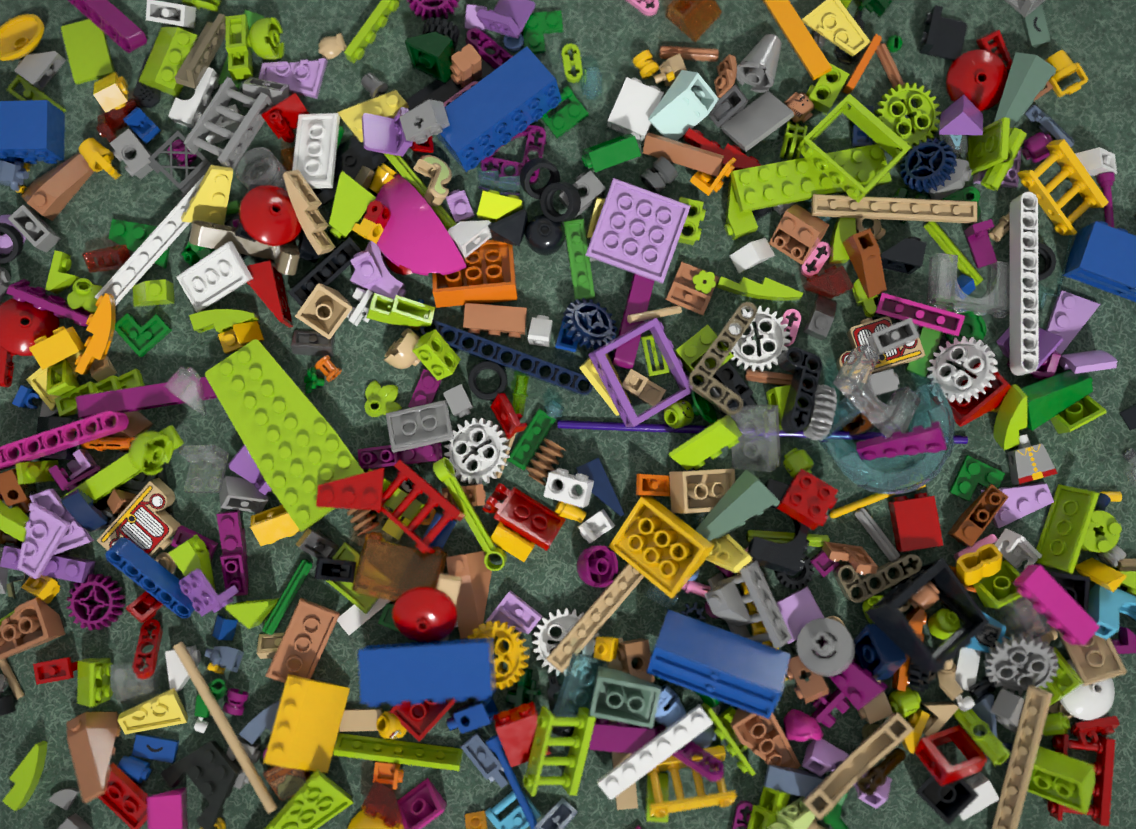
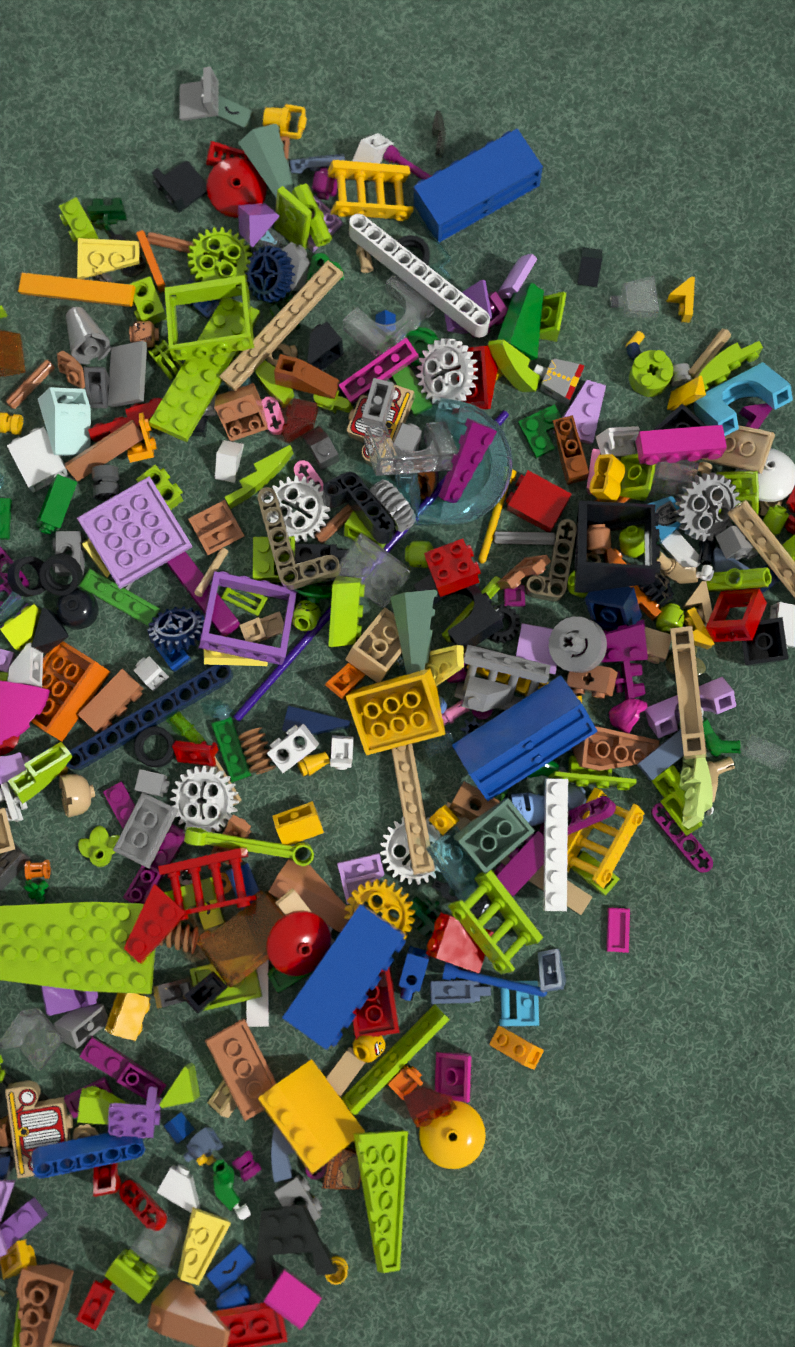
camera: 50 degrees left, 5 degrees down
(97, 594) = (74, 1228): magenta gear -> none
(225, 727) = (259, 1188): tan piece -> none
(287, 597) = (196, 1054): green axle -> none
(436, 355) = (99, 770): lime brick -> none
(524, 515) = (286, 802): red tile -> none
(597, 566) = (373, 775): magenta cylinder -> none
(670, 70) = (30, 408): tan piece -> none
(704, 287) = (218, 507): lime plant -> none
(738, 223) = (193, 451): lime slope -> none
(877, 775) = (709, 683): dark brown pin -> none
(891, 41) = (153, 228): green hinge -> none
(950, 248) = (325, 309): lime axle -> none
(980, 243) = (363, 283): magenta bracket -> none
(1066, 527) = (631, 391): lime tile -> none
(1069, 317) = (474, 263): lavender wing -> none

